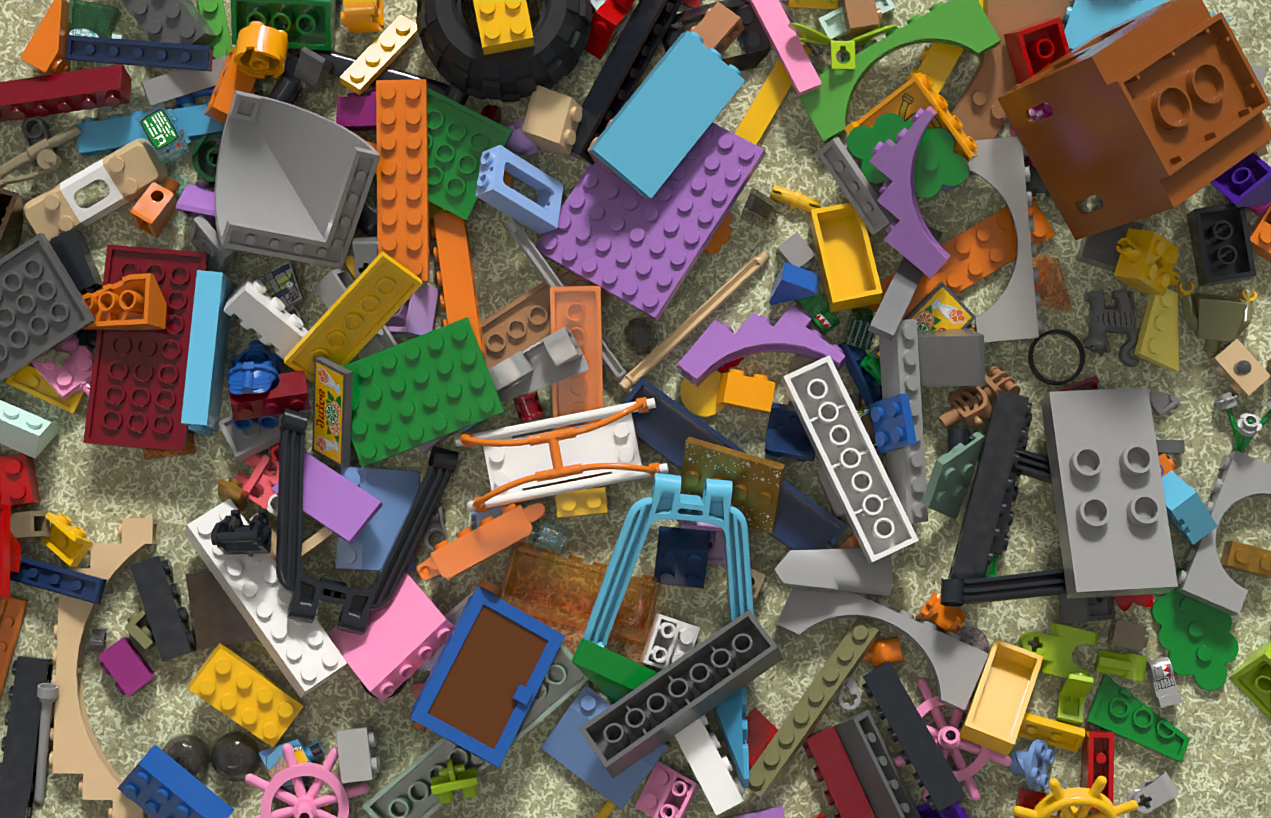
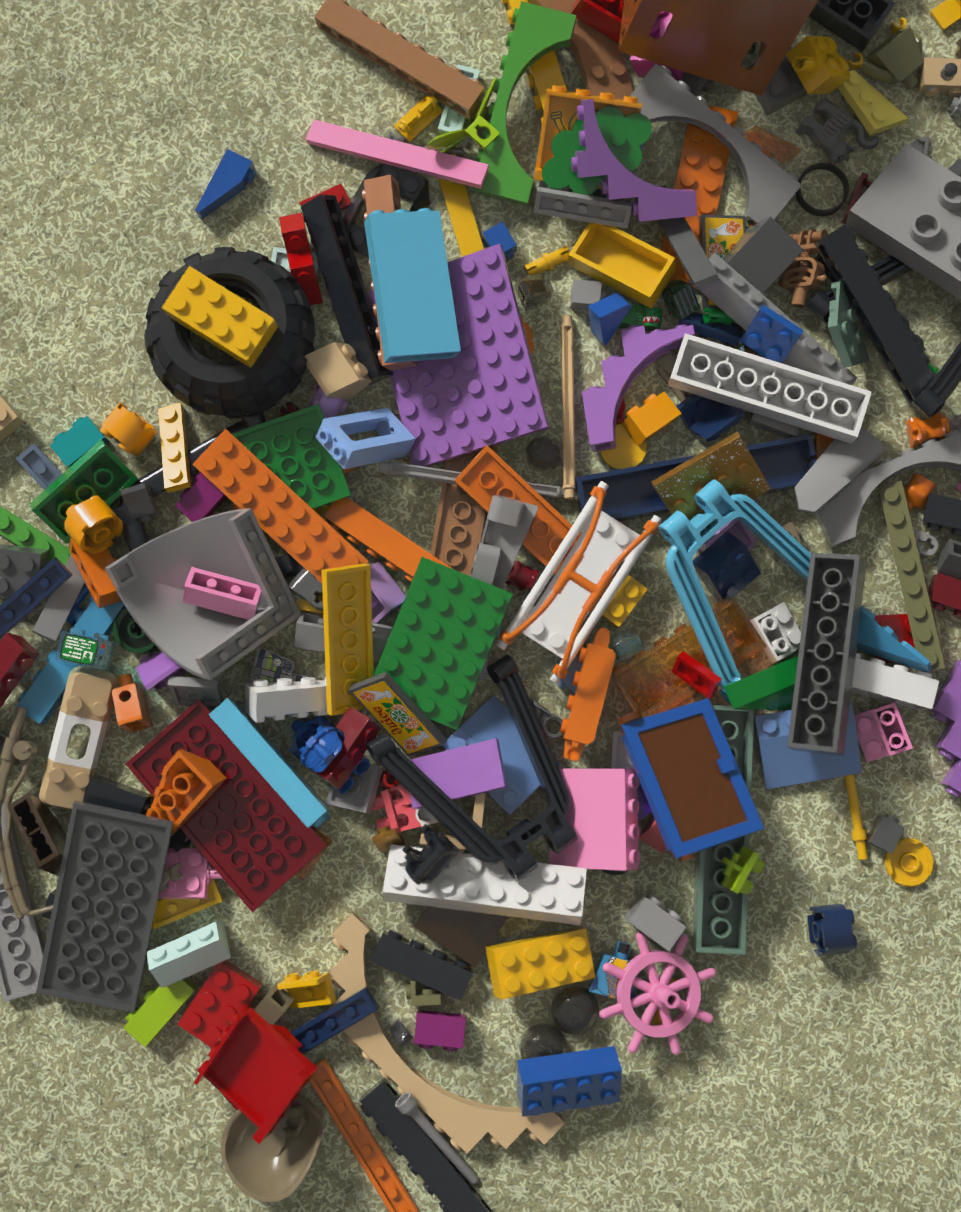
camera: 50 degrees left, 0 degrees up
(300, 195) = (222, 593): none -> bright pink brick
(574, 610) = (696, 675): none -> red plate
(775, 146) = (500, 235): none -> blue brick

